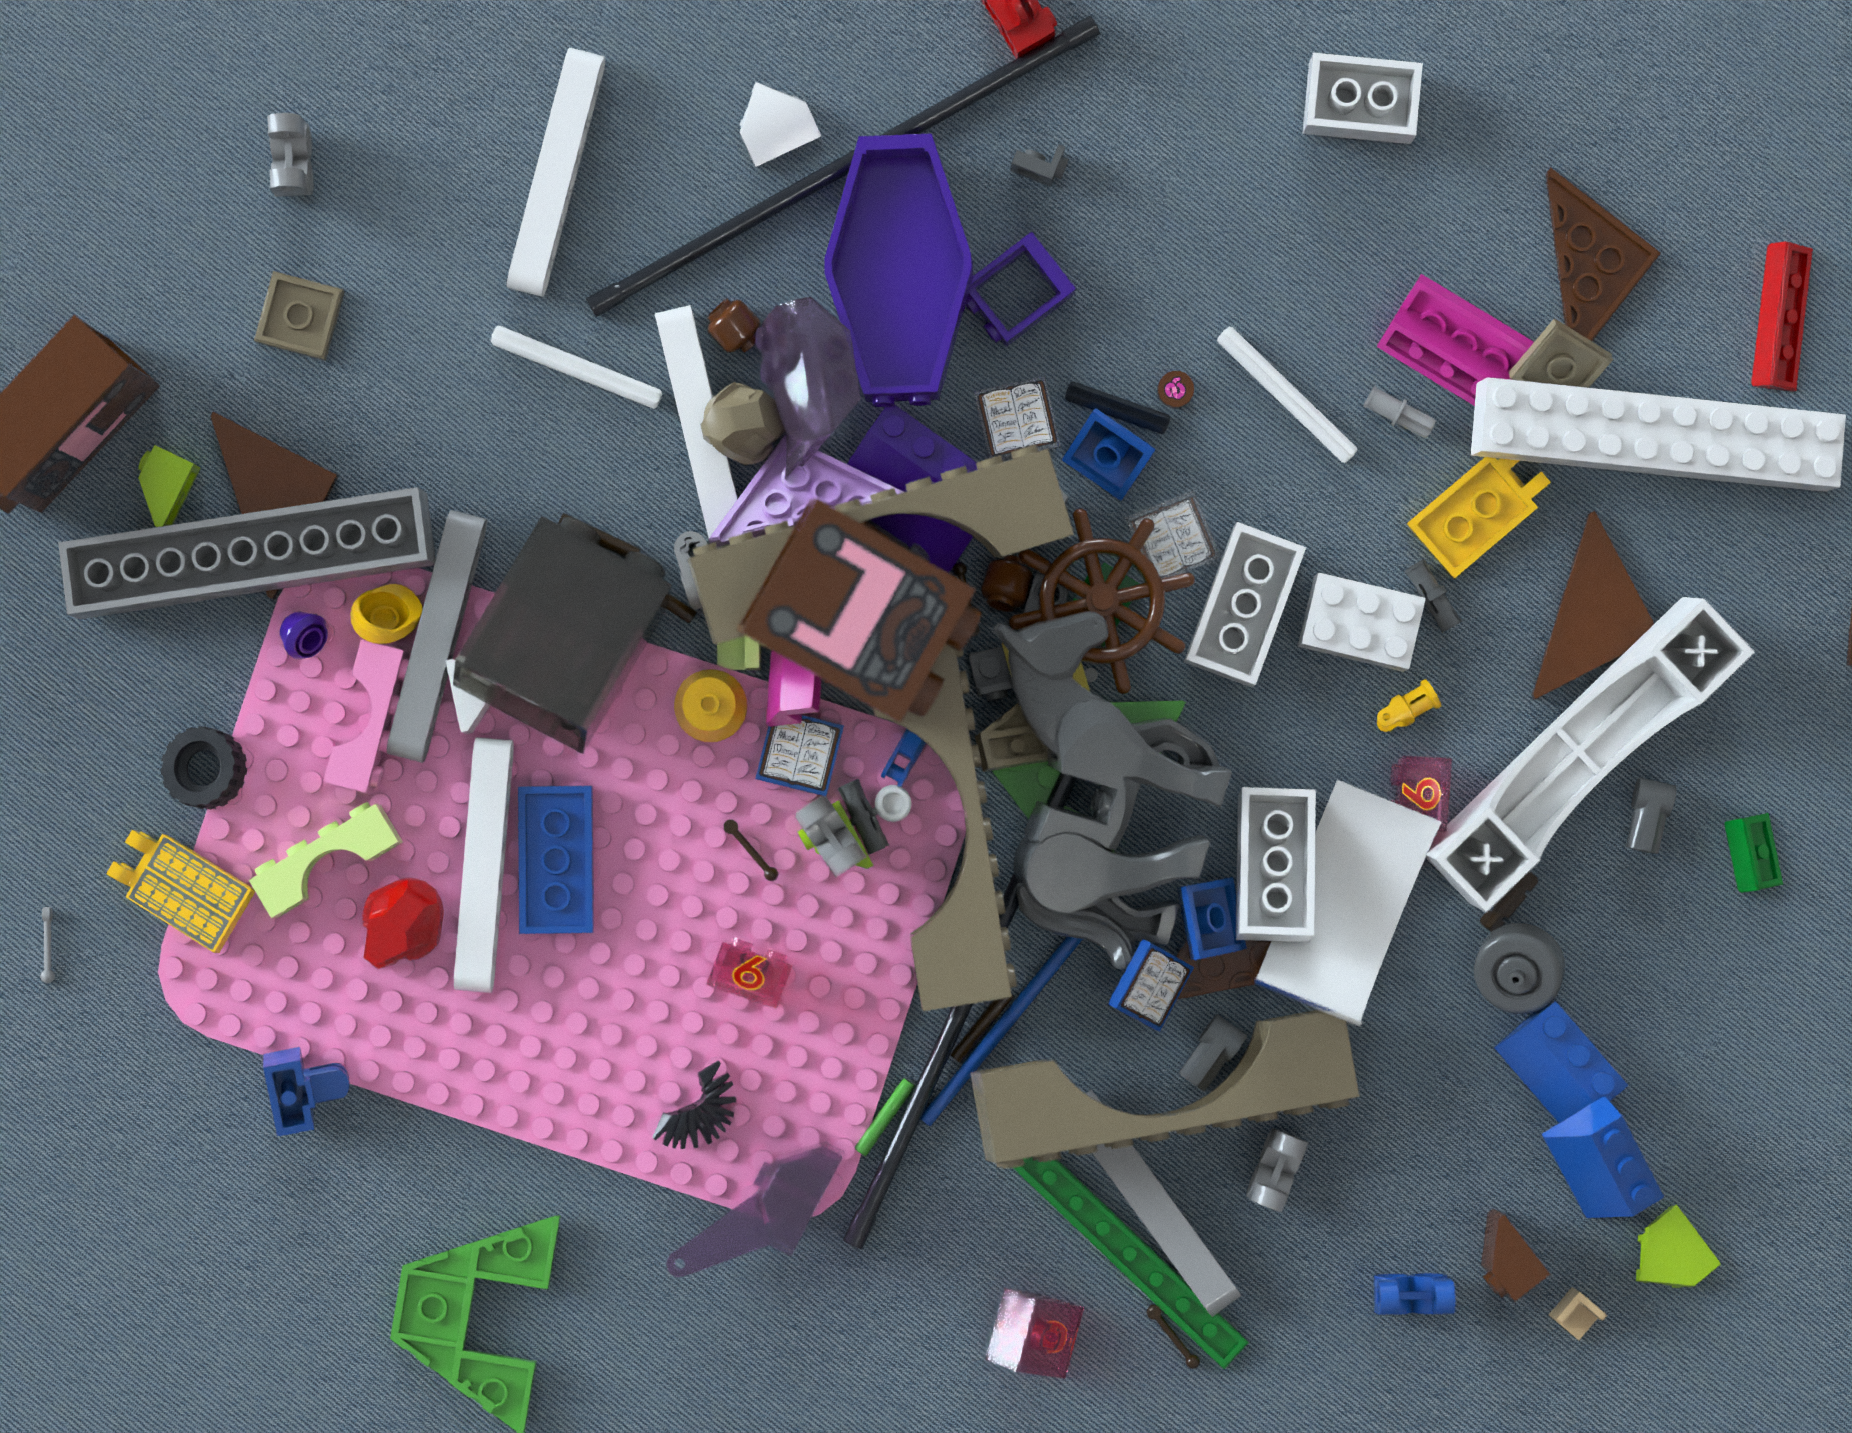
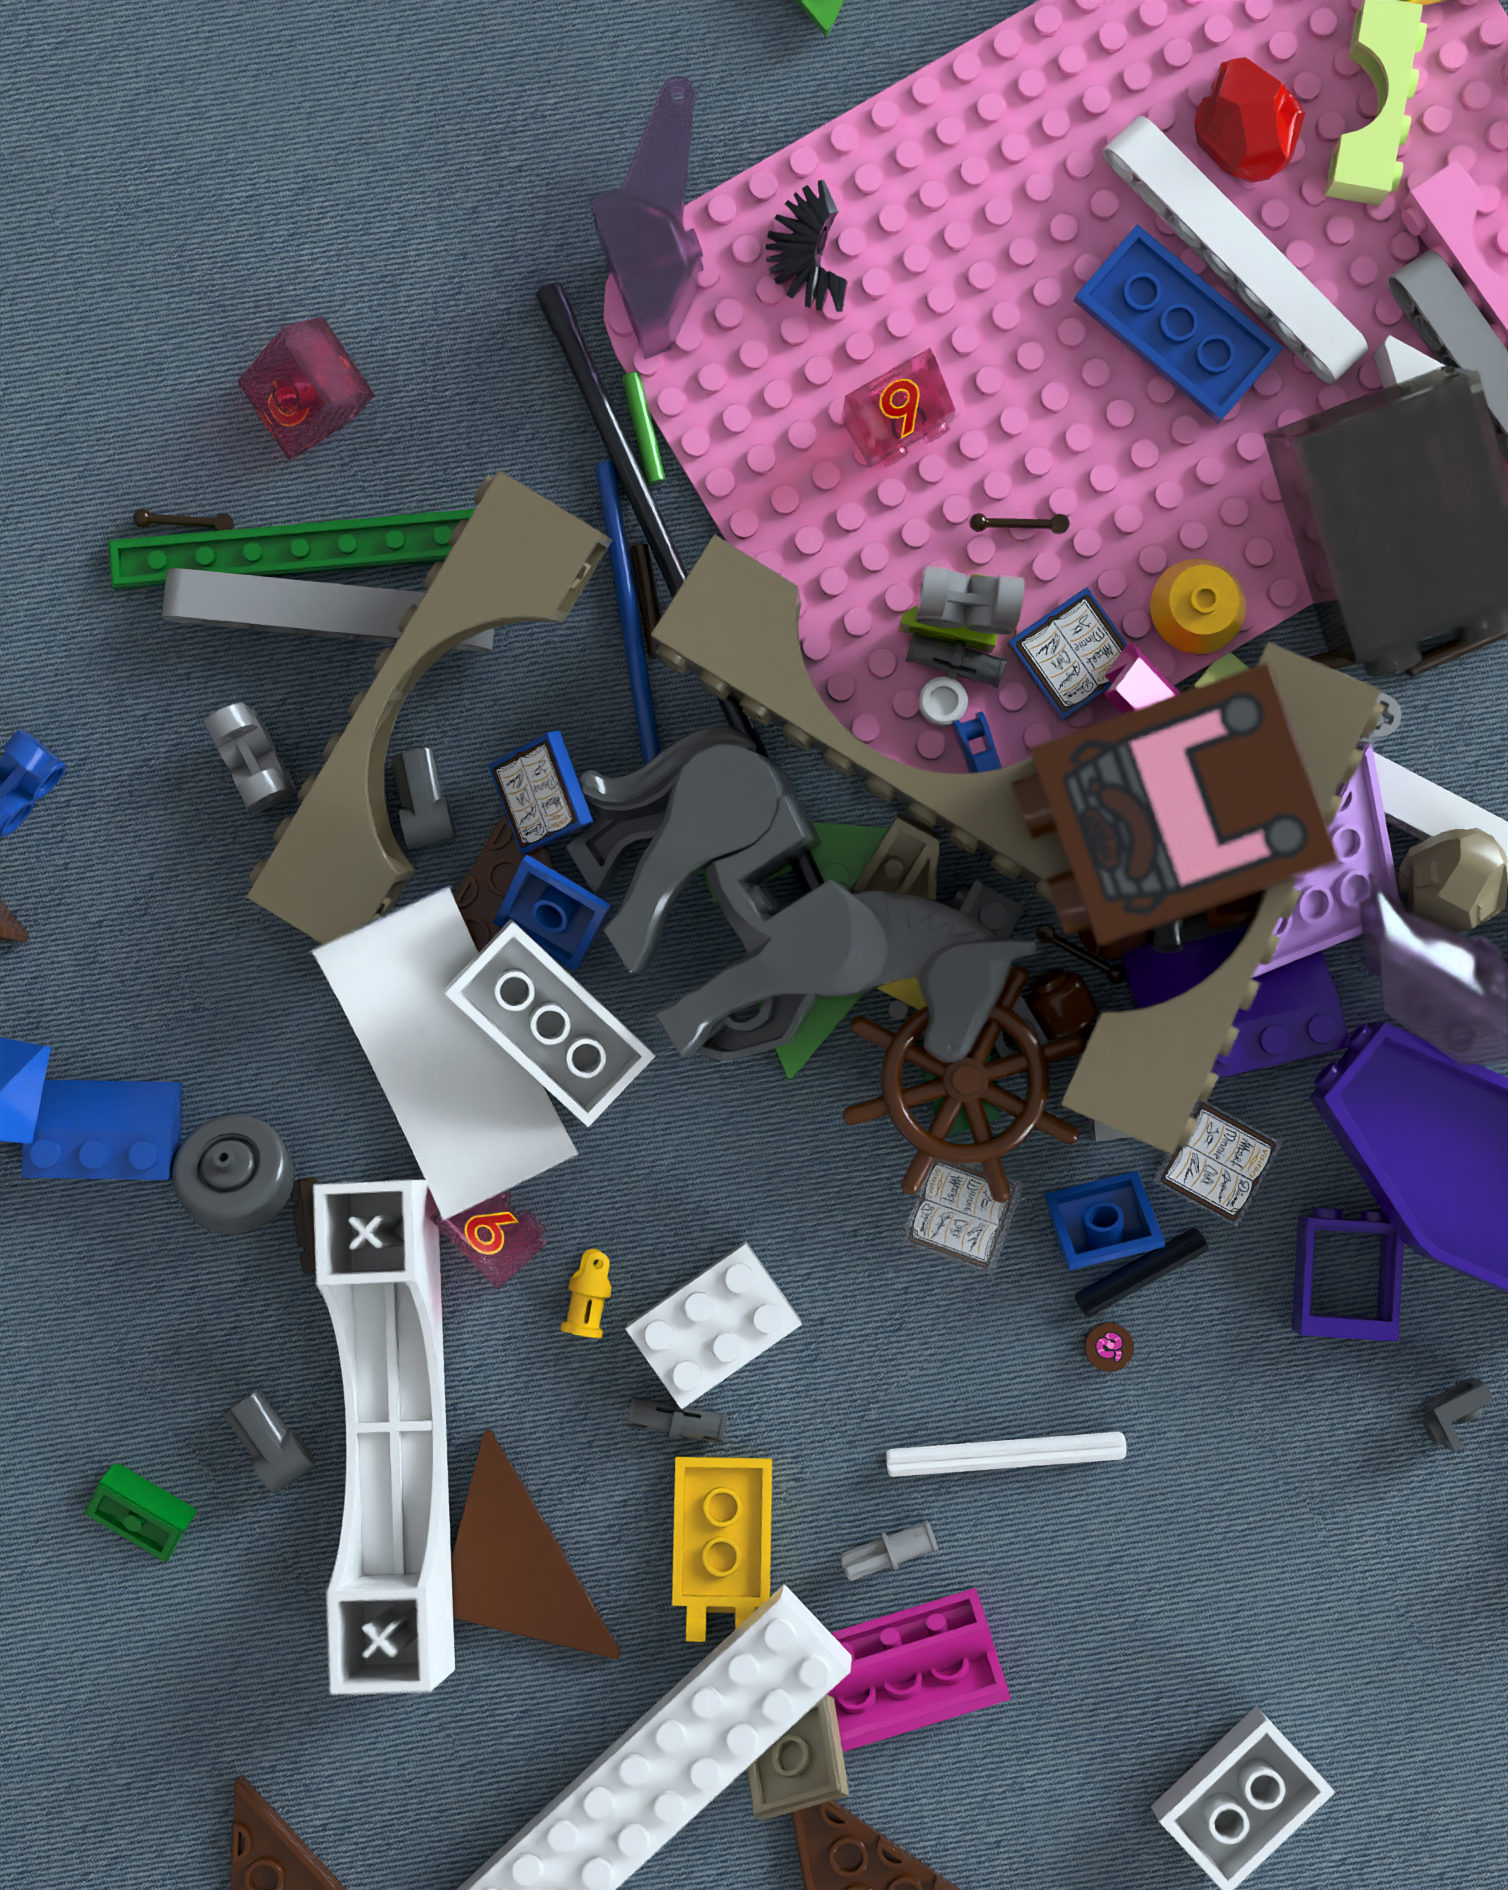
camera: 125 degrees right, 0 degrees up
(1244, 604) = (834, 1223): white brick -> none

